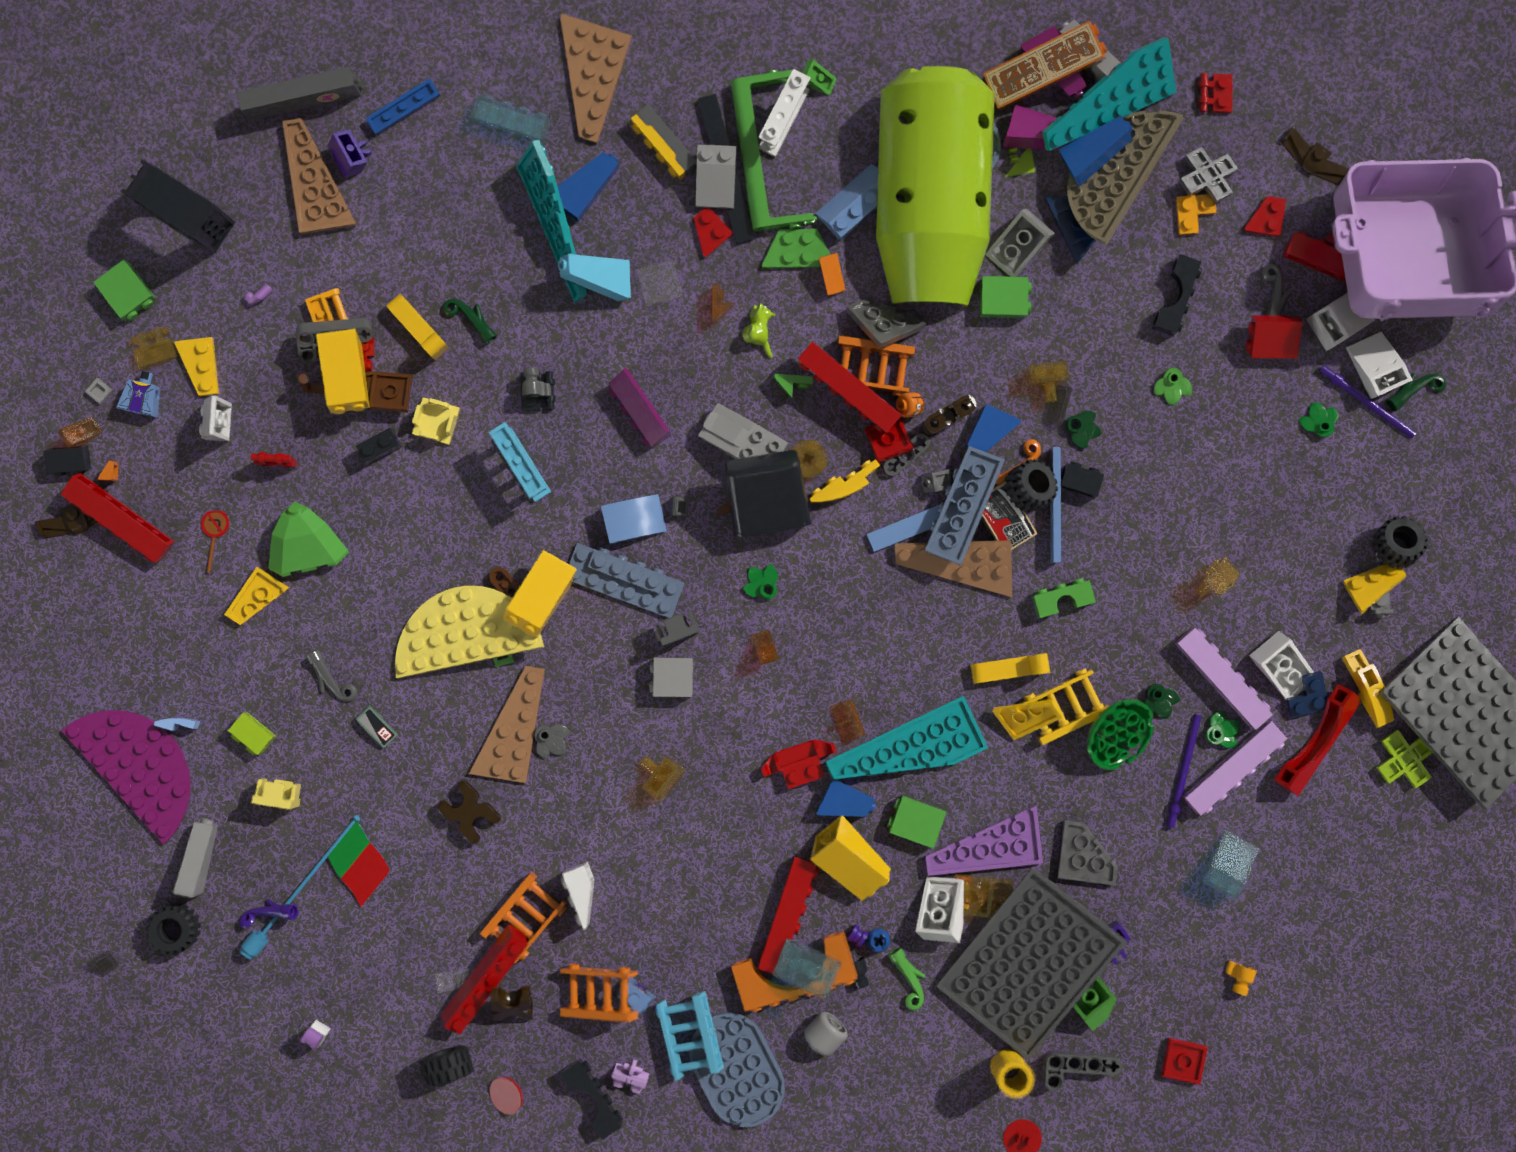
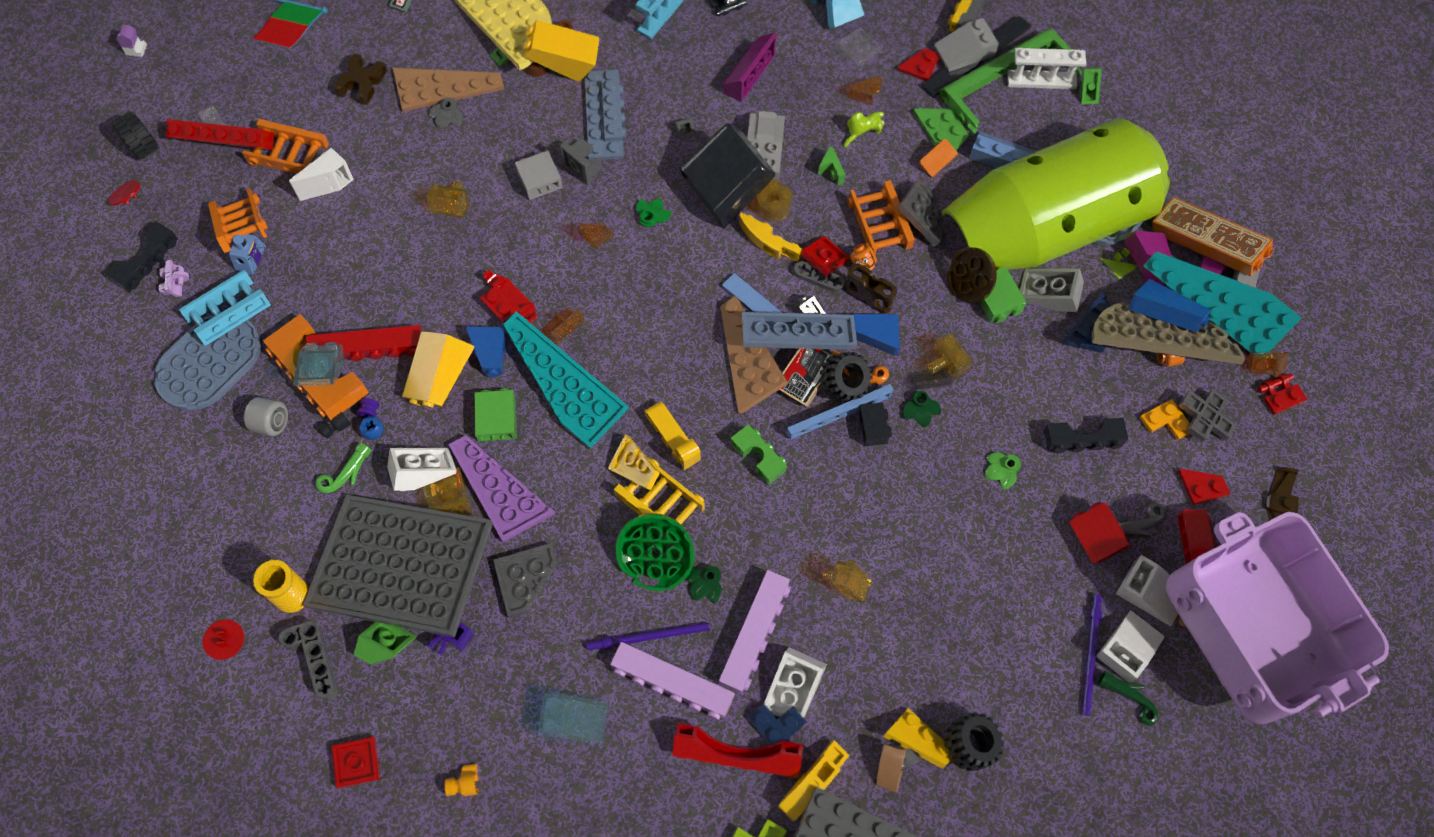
camera: 65 degrees right, 20 degrees down
(512, 1003) = (205, 160): dark brown piece -> none
(633, 518) = (657, 98): medium blue slope -> none
(848, 386) = (851, 200): red brick -> none
(980, 314) = (972, 275): none -> dark brown tile
(1184, 85) = (1270, 362): none -> clear orange slope
(1225, 728) = (706, 658): green plate -> none
(1317, 417) = (1050, 613): green plate -> none
(1387, 620) = (890, 768): none -> medium nougat slope

